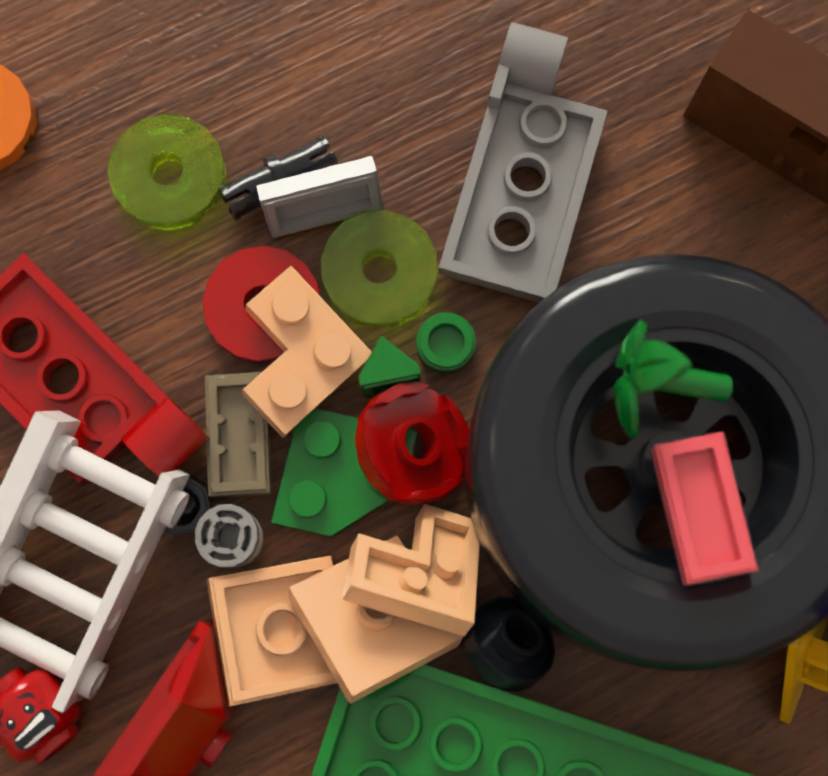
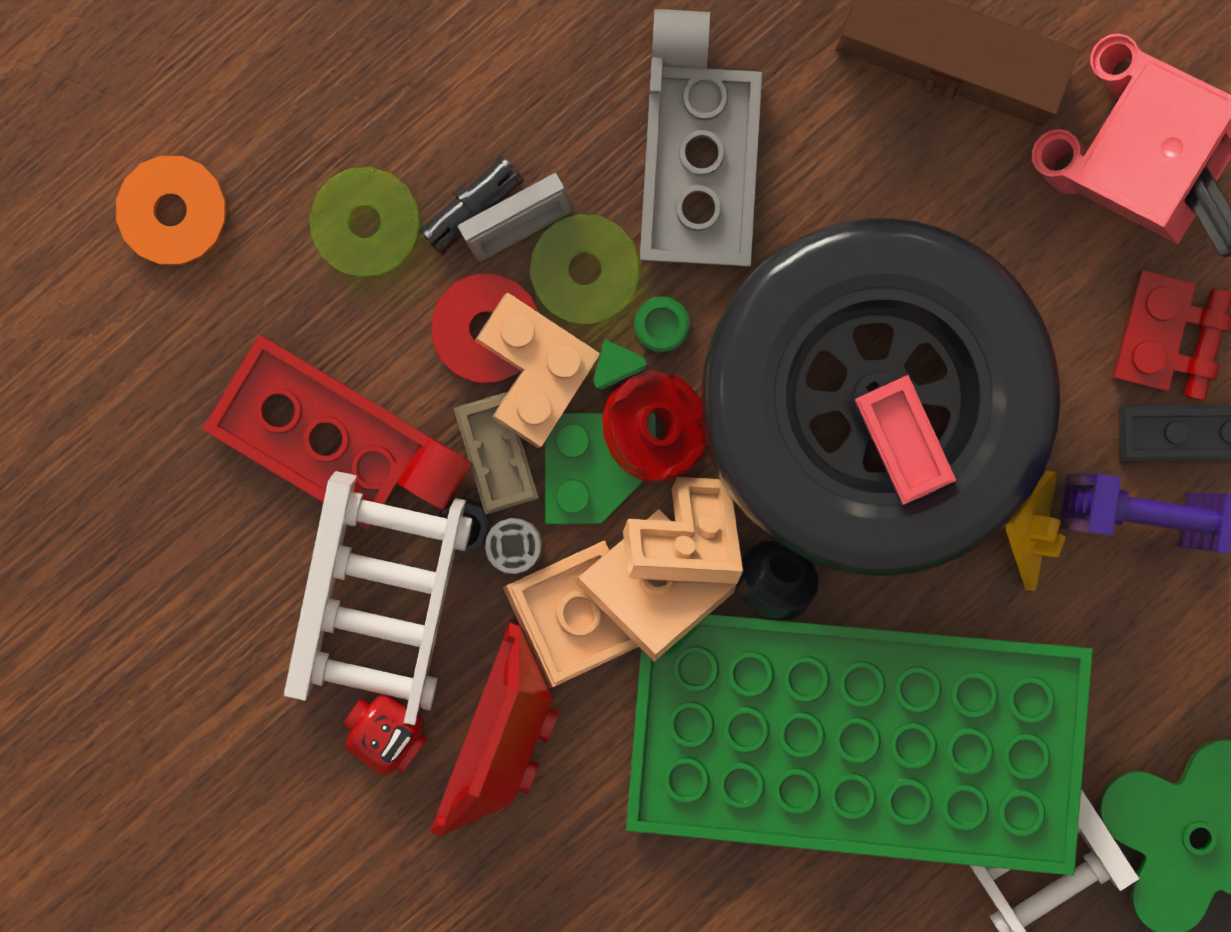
camera: 10 degrees left, 10 degrees up
(659, 368) = (840, 341): green plant -> none

